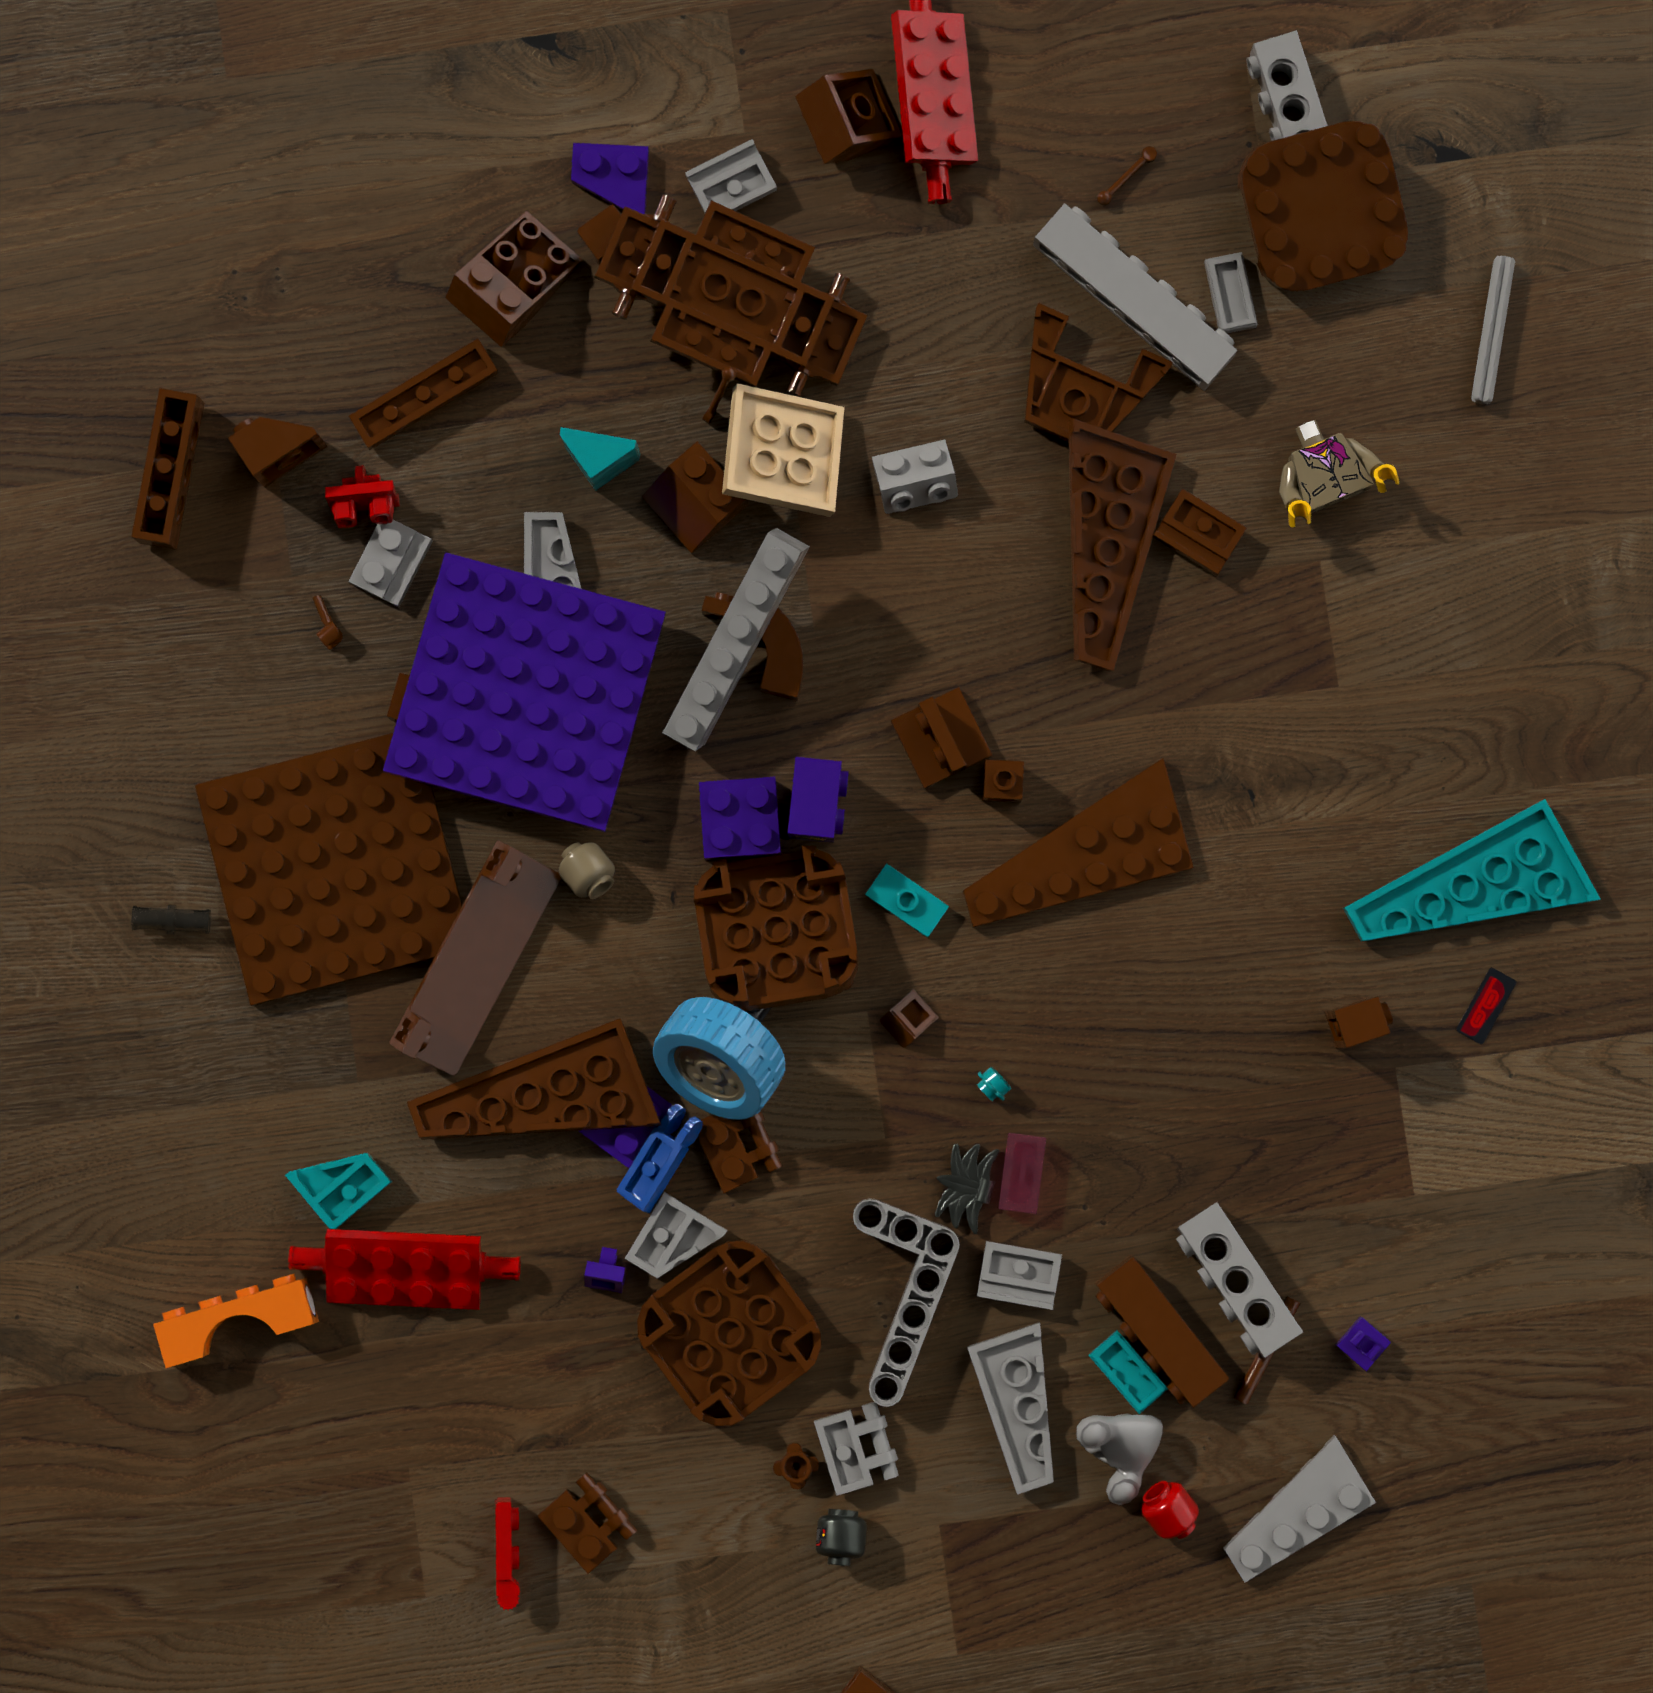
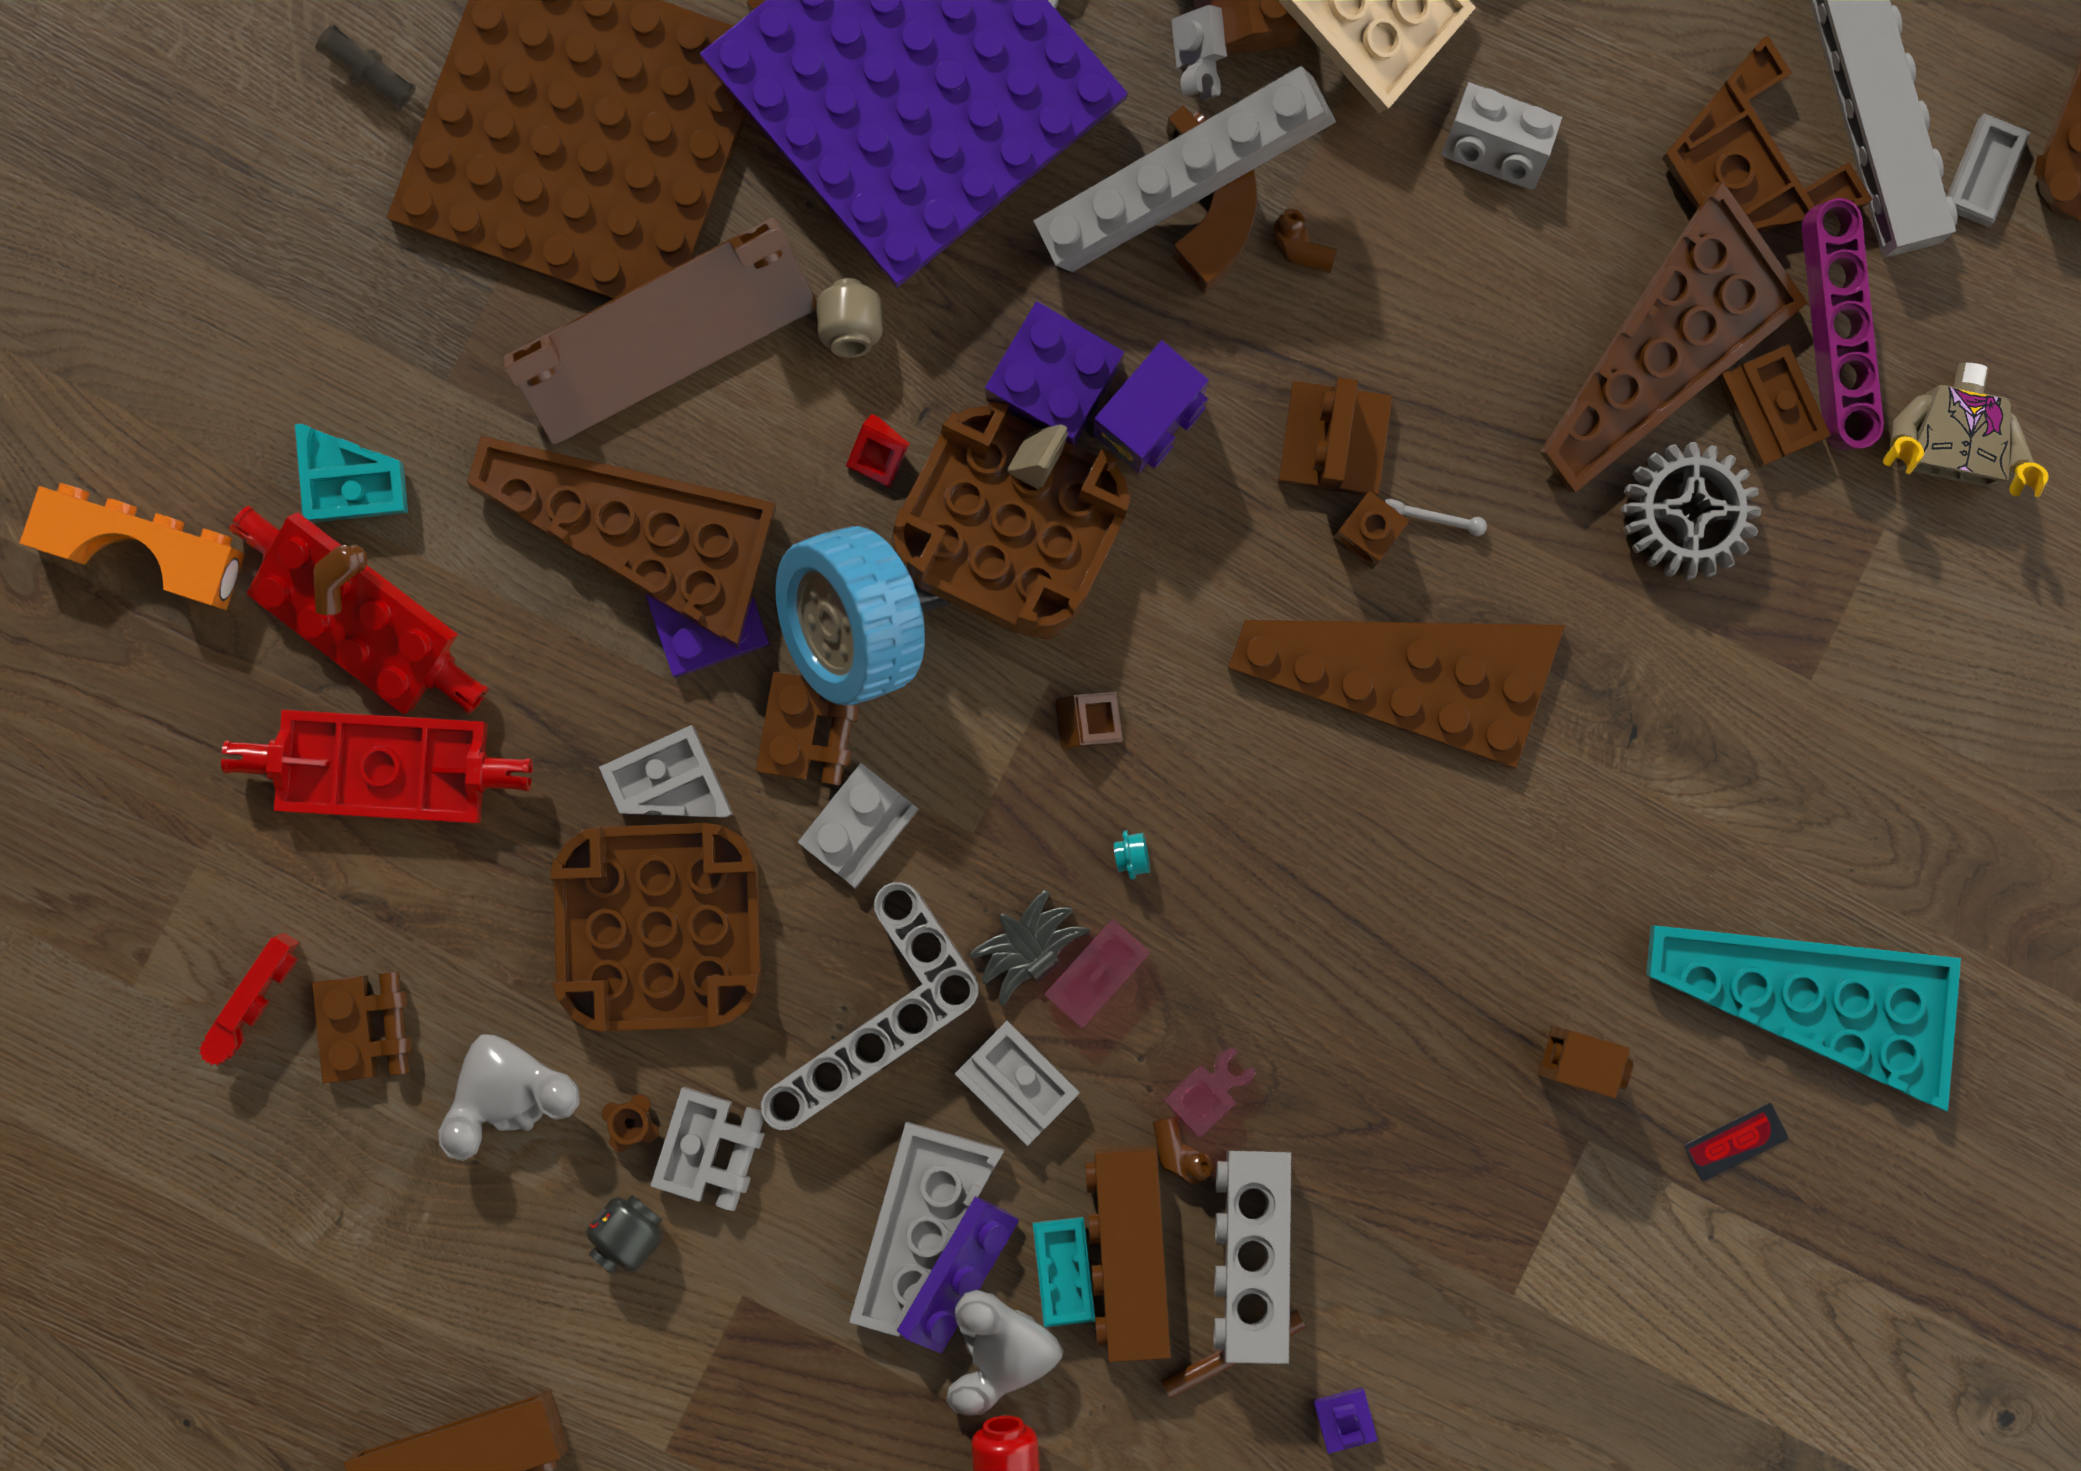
camera: 35 degrees right, 0 degrees up
(380, 1251) = (332, 573): none -> reddish brown arm
(486, 1352) = (378, 766): none -> red plate
(605, 1274) = (567, 769): dark purple tile -> none
(659, 1159) = (711, 685): blue hinge -> none
(661, 941) = (877, 451): none -> red slope
(687, 550) = (1197, 46): none -> light grey plate
(706, 1498) = (505, 1089): none -> light grey head
(765, 877) = (1038, 455): none -> dark tan slope
(810, 1183) = (858, 825): none -> light grey plate
(835, 632) = (1297, 245): none -> reddish brown arm
(907, 900) = (1175, 590): teal plate -> none
(1062, 1416) = (957, 1271): none -> dark purple plate
(1065, 733) = (1476, 526): none -> light grey hinge
(1138, 1204) = (1204, 1097): none -> clear pink plate
(1151, 1252) = (1178, 1157): none -> reddish brown arm
(1183, 619) = (1691, 489): none -> light grey gear
(1225, 461) = (1854, 302): none -> magenta beam

